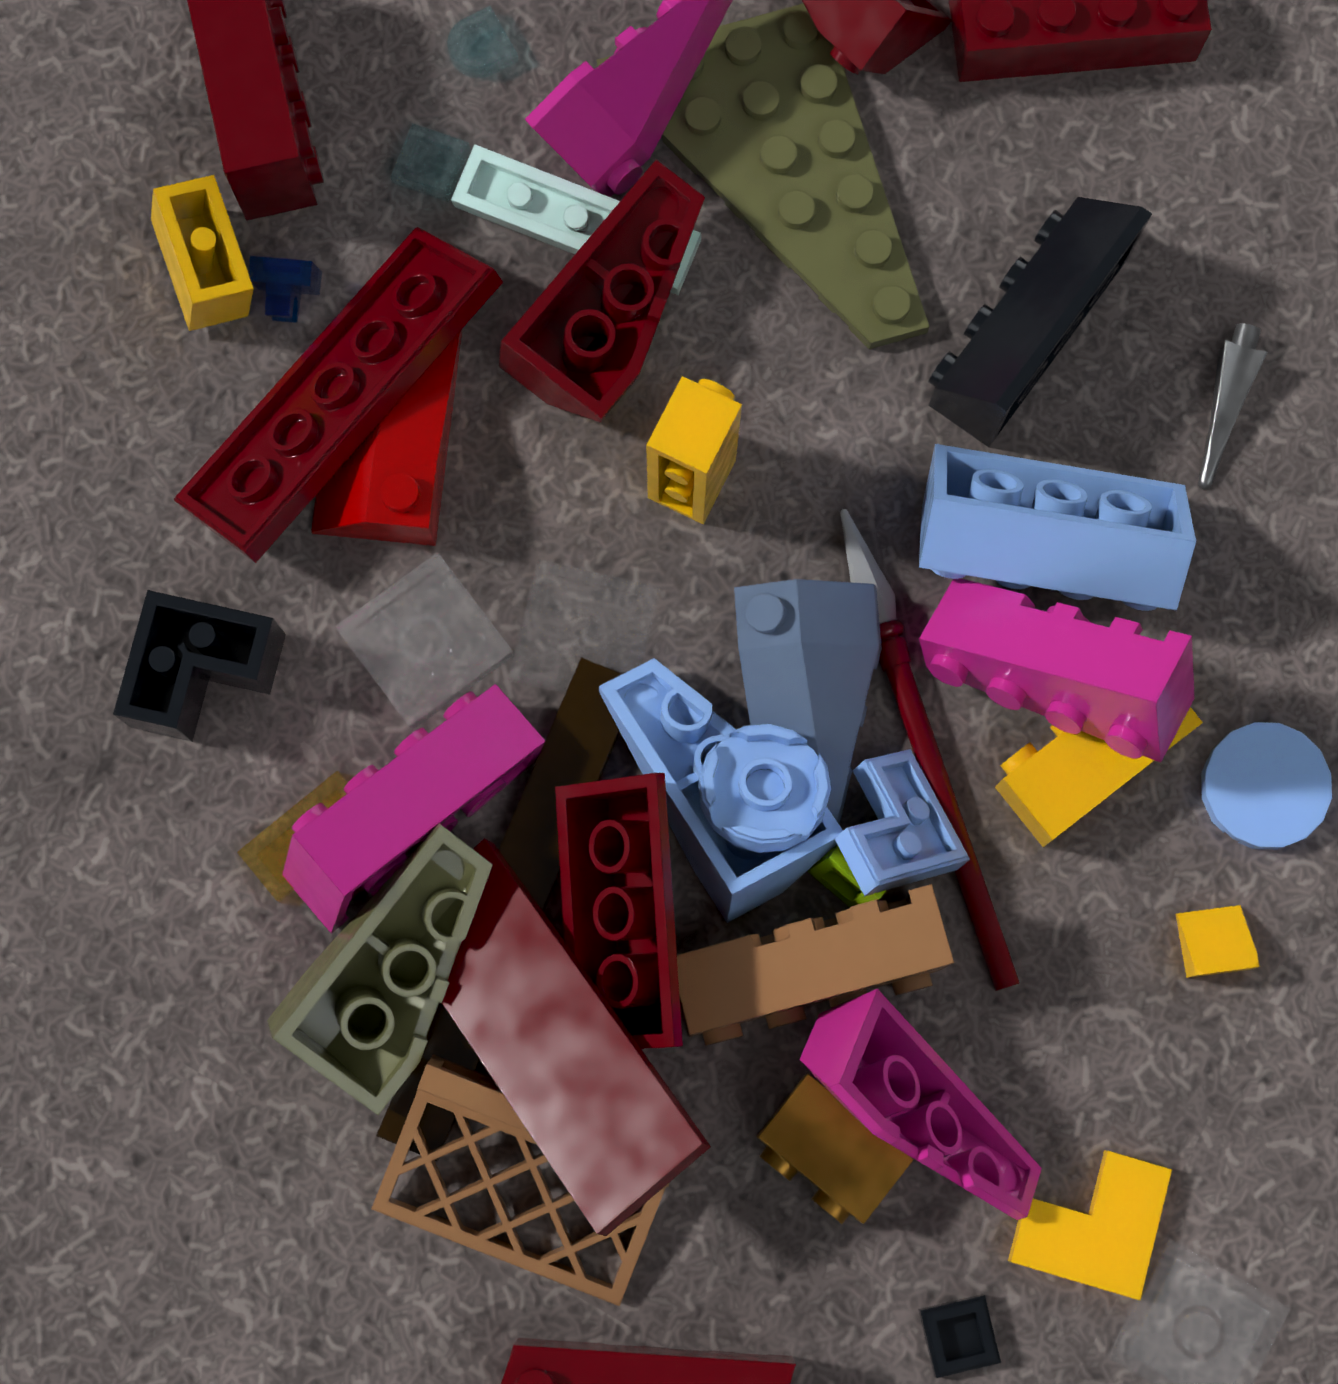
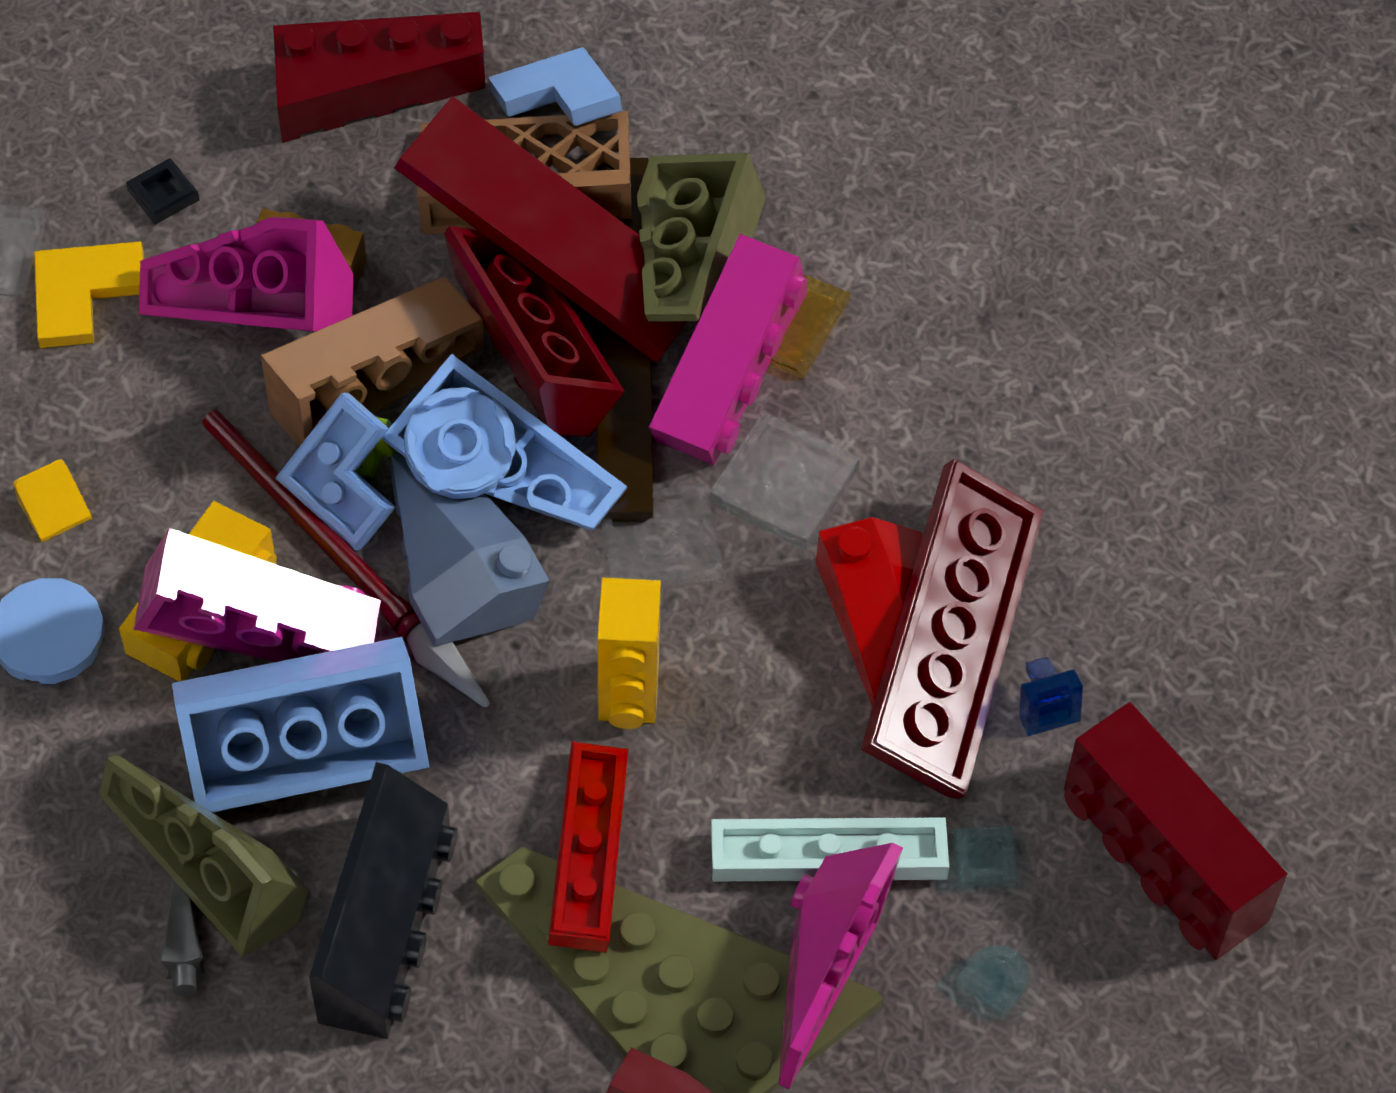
camera: 155 degrees right, 20 degrees down
(181, 649) = (956, 397): black brick -> none
(201, 252) = (1121, 672): yellow brick -> none
(423, 1297) = (567, 78): none -> light blue tile
(600, 313) = (764, 761): dark red wedge -> none
(809, 308) = (588, 847): none -> red tile
(1166, 404) = (218, 866): none -> olive wedge

